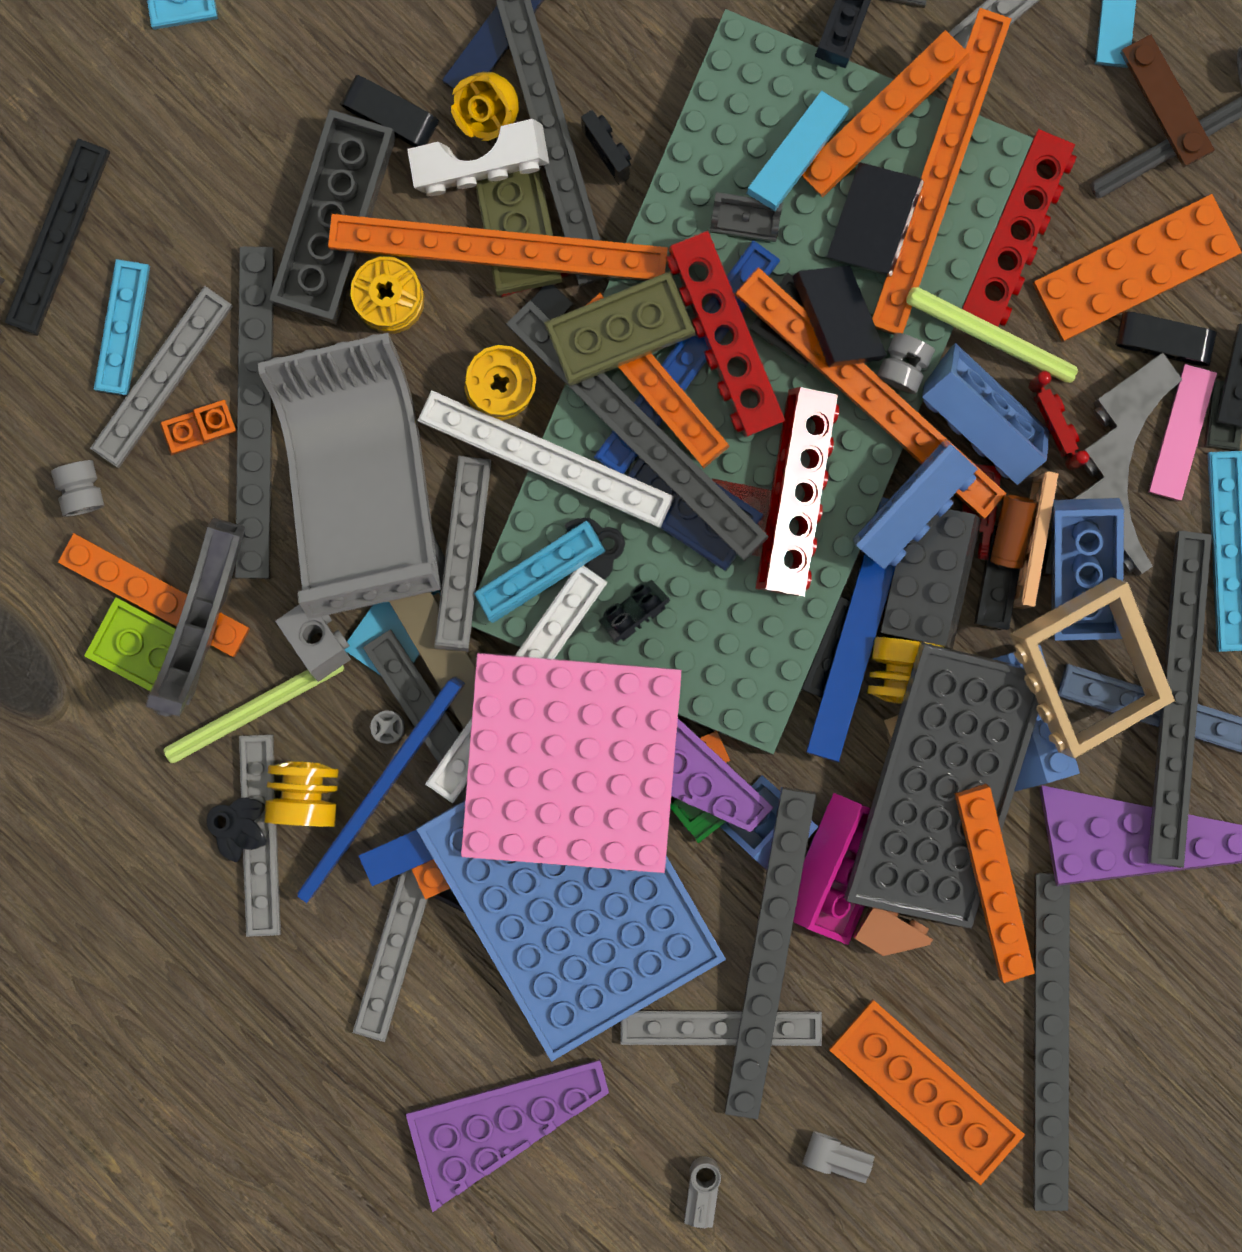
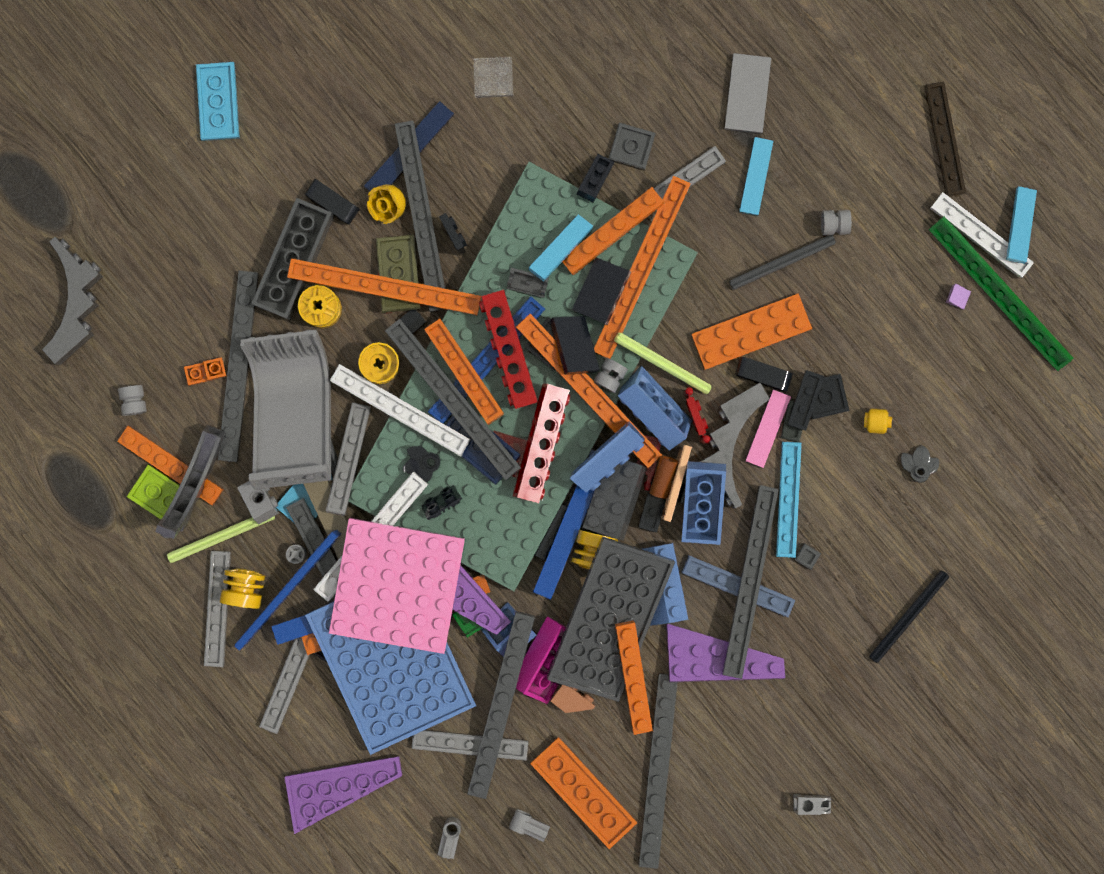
camera: 10 degrees right, 0 degrees up
(57, 236) = (135, 254): black tile -> none
(122, 327) = (167, 310): medium azure tile -> none
(161, 377) = (187, 340): light grey tile -> none
(240, 828) = (206, 604): black plate -> none
(518, 148) = (401, 230): white arch -> none
(539, 571) = (389, 474): medium azure tile -> none
(620, 328) = (448, 340): olive tile -> none
(1043, 150) = (703, 259): red brick -> none
(1139, 647) = (662, 540): tan window -> none
(1167, 101) = (777, 237): reddish brown plate -> none

